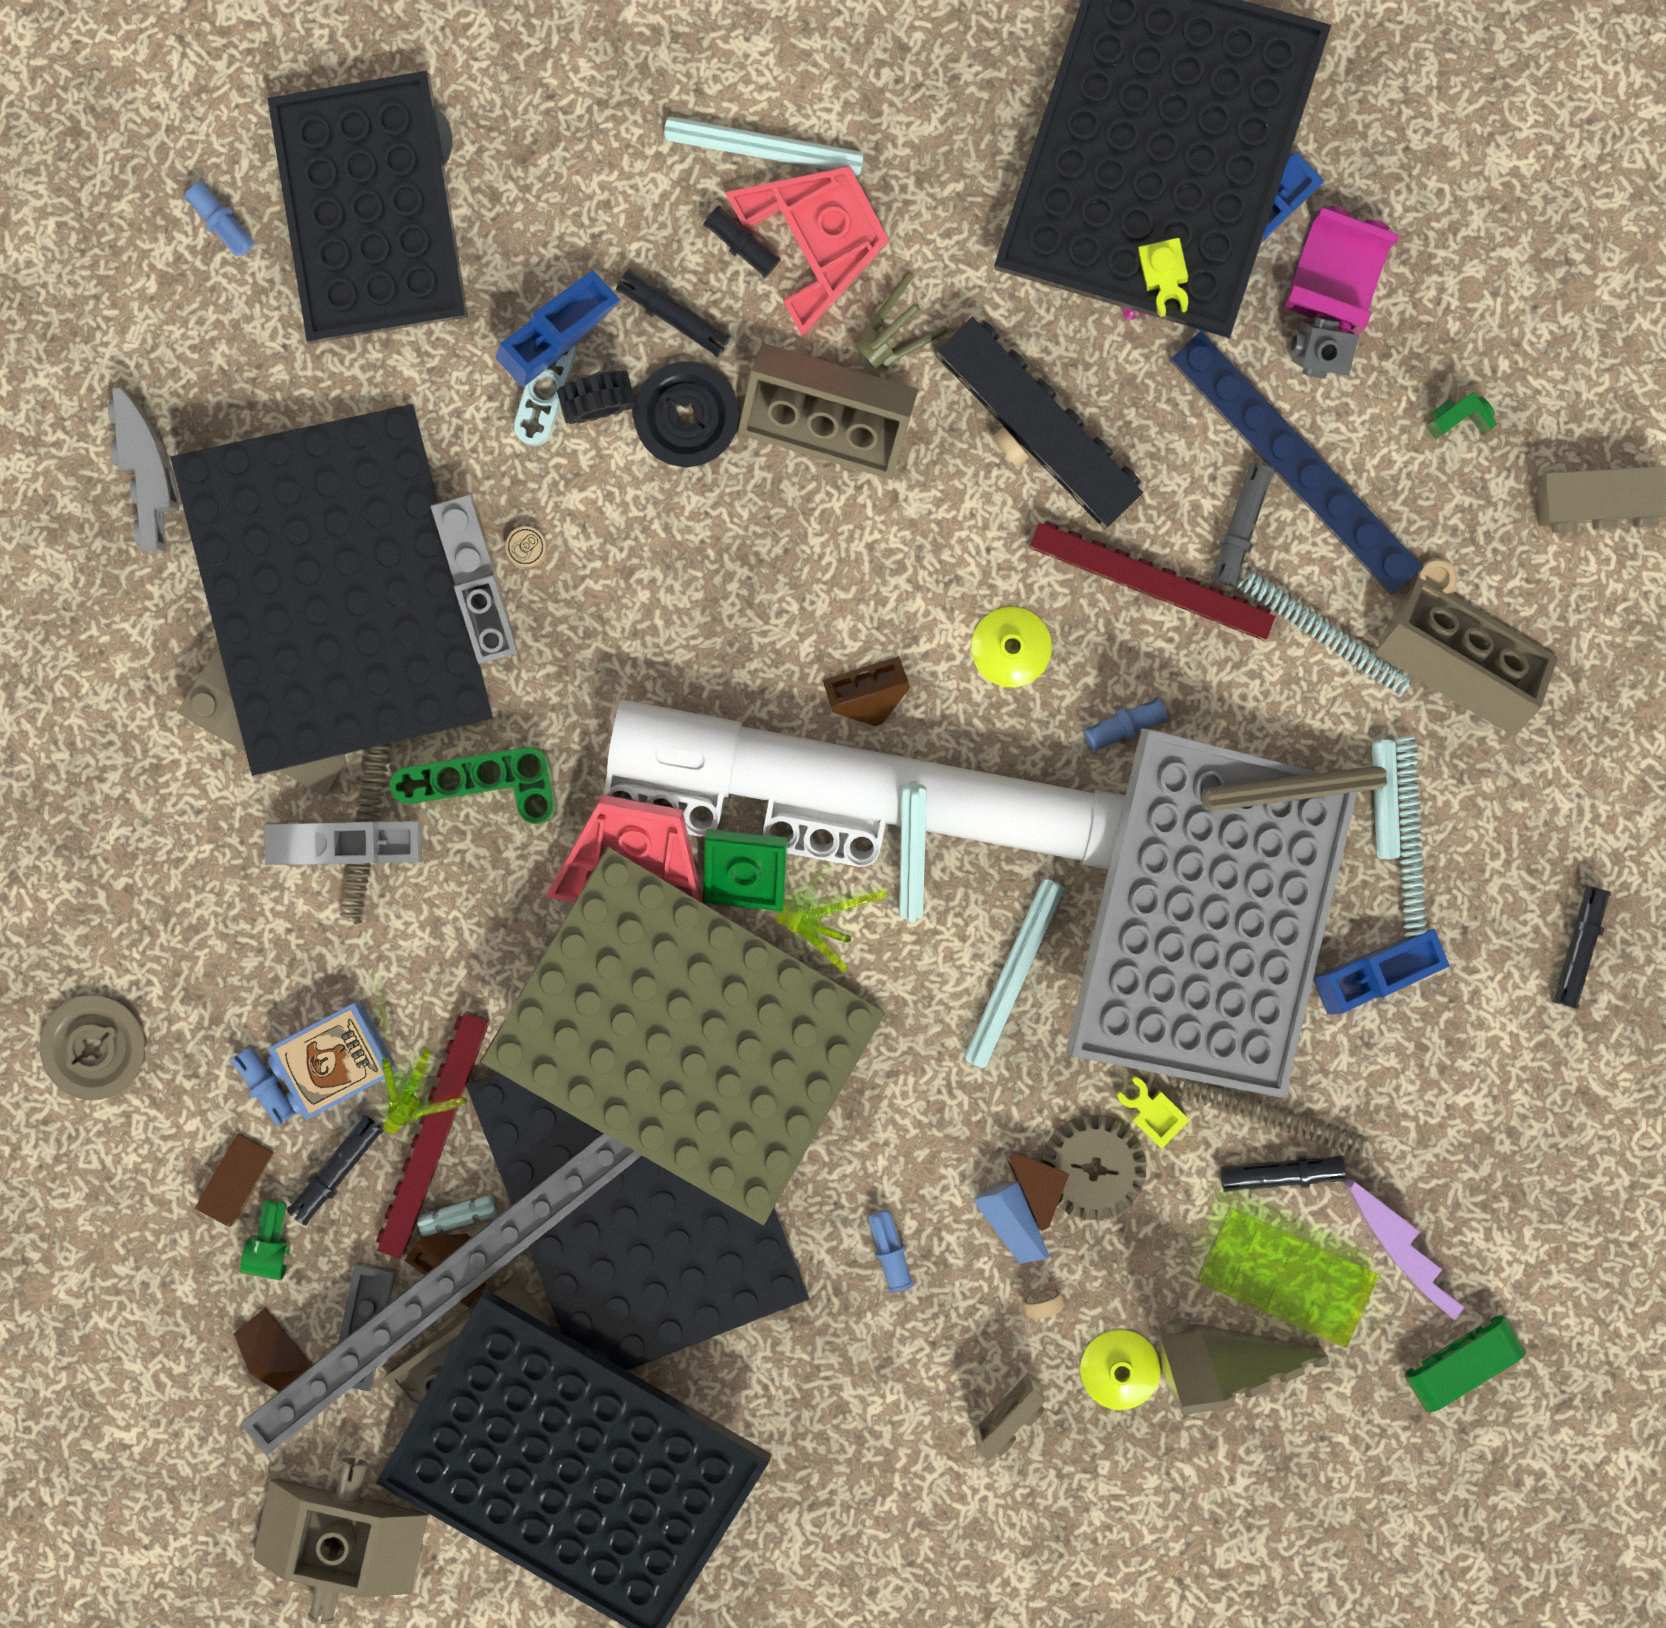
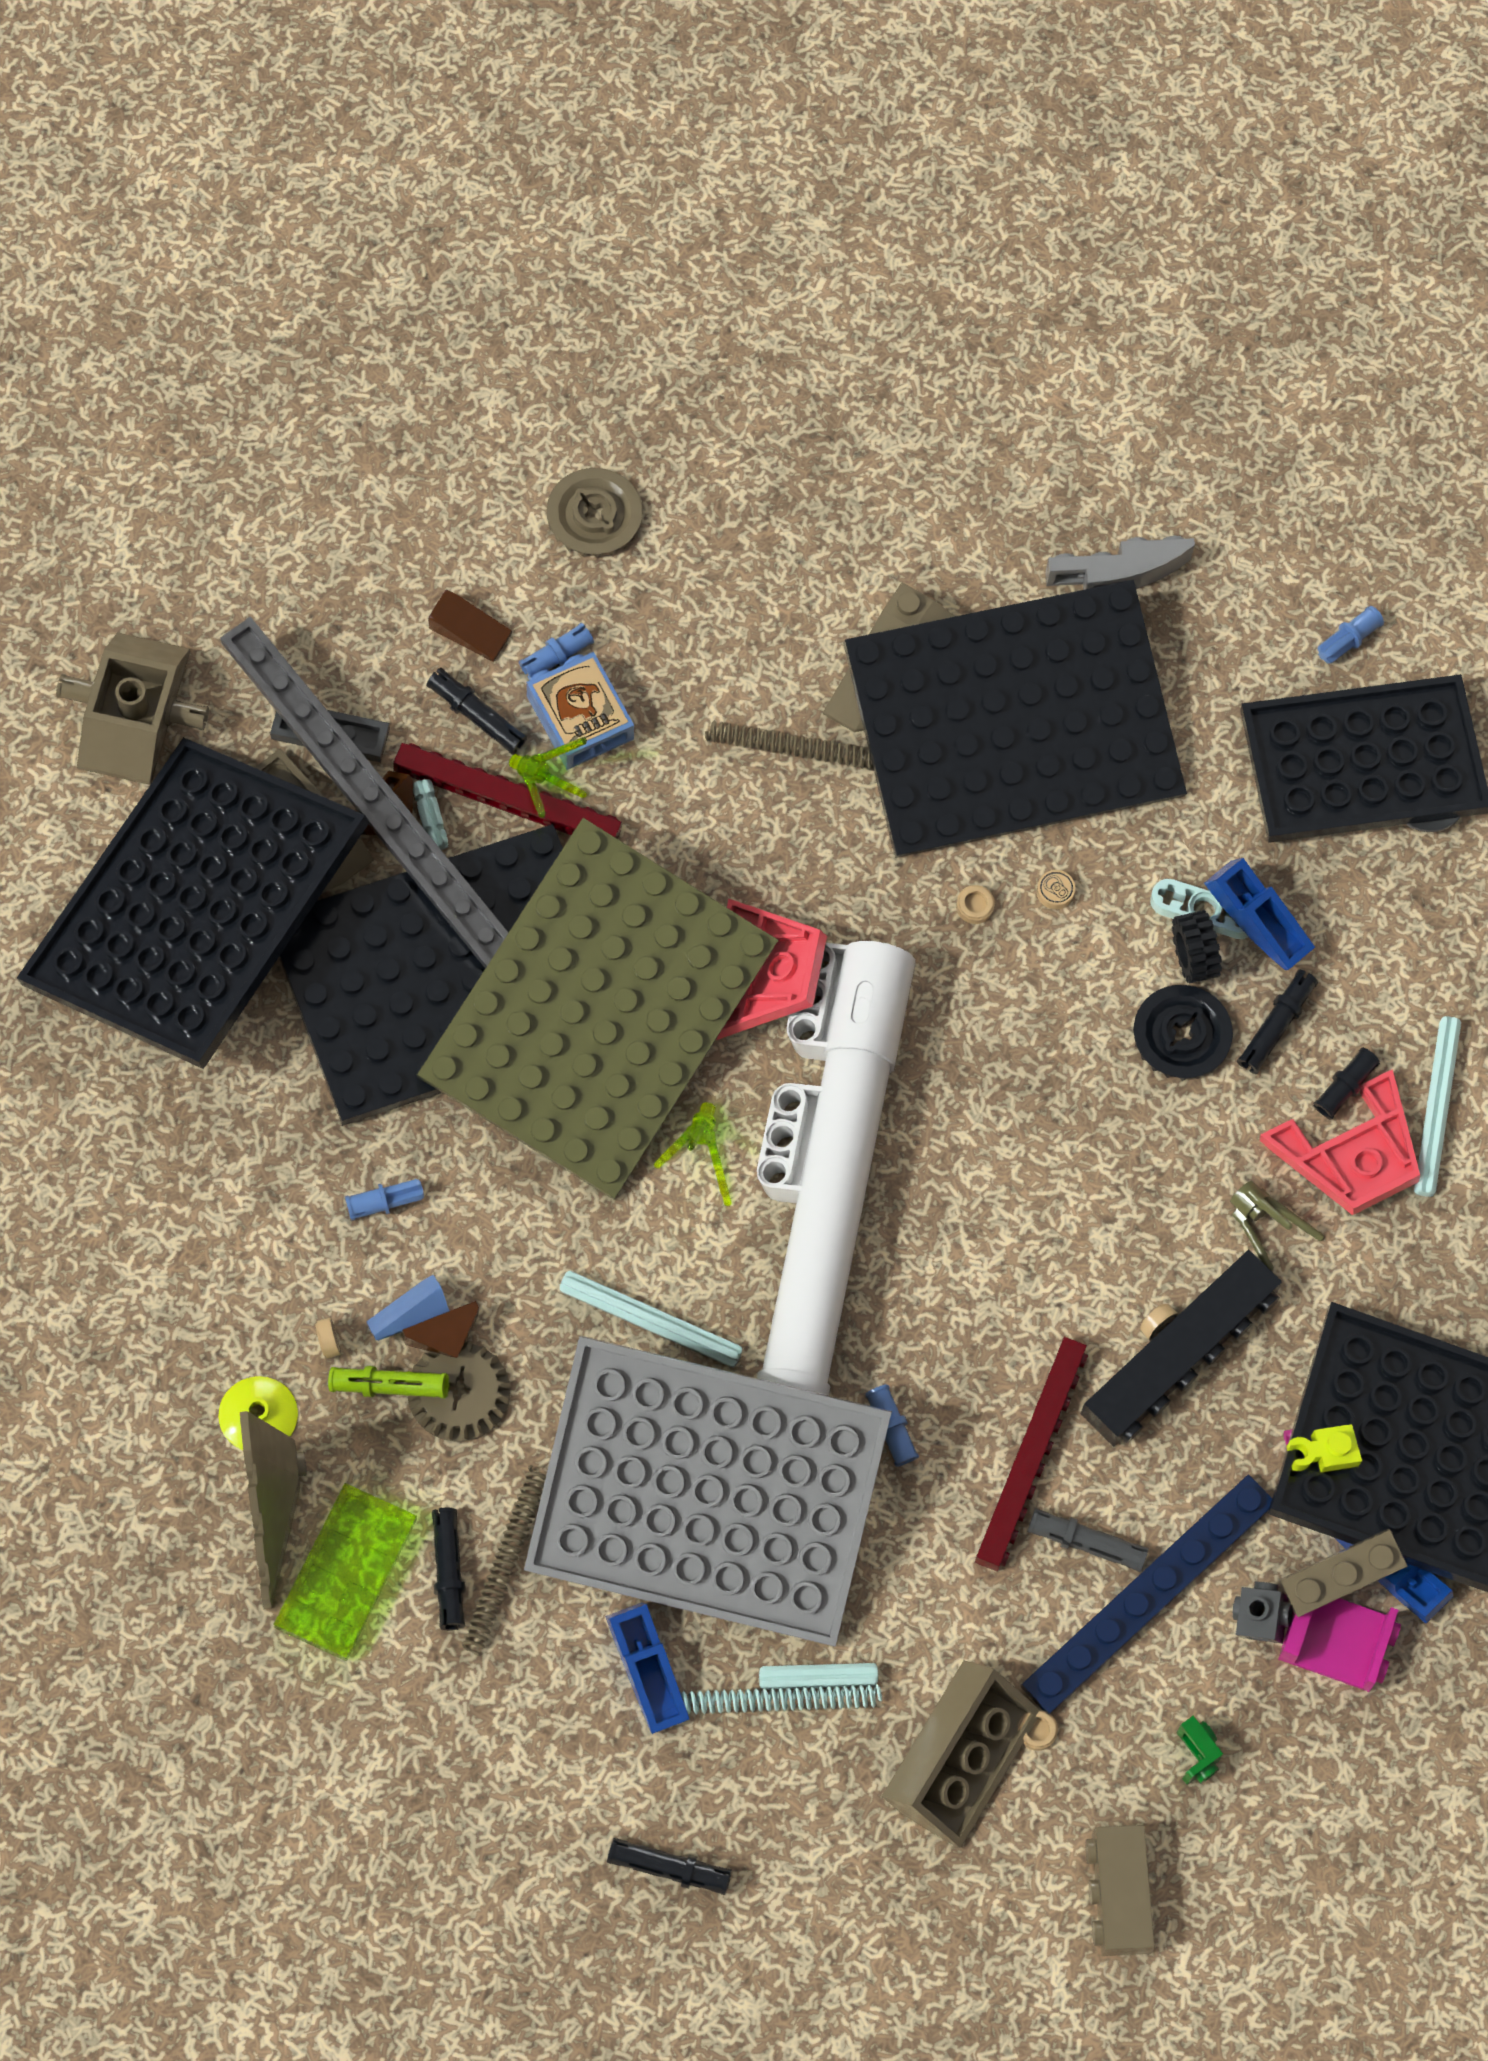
camera: 85 degrees right, 20 degrees down
(266, 1251) = (402, 650): green axle -> none
(270, 1351) = (312, 649): reddish brown slope -> none
(343, 843) = (781, 722): light grey slope -> none
(473, 783) = (837, 835): green beam -> none
(475, 578) = (1026, 843): light grey slope -> none
(545, 633) = (975, 904): none -> tan tile
(745, 870) = (753, 1070): green tile -> none
(826, 411) = (1189, 1155): dark tan slope -> none
(868, 692) = (921, 1188): reddish brown slope -> none
(912, 851) = (771, 1213): light aqua axle -> none
(990, 652) = (961, 1341): neon yellow dish -> none
(1017, 1408) = (216, 1290): dark tan plate -> none
(1090, 1254) = (344, 1381): none -> lime pin
(1156, 1115) = (509, 1448): neon yellow plate -> none
(1293, 788) = (832, 1568): dark tan axle -> none
(1294, 261) = (1343, 1572): none -> dark tan plate
(1327, 629) = (976, 1618): light aqua piece -> none
(1395, 1238) = (383, 1672): lavender slope -> none
(1465, 1364) = (252, 1743): green beam -> none

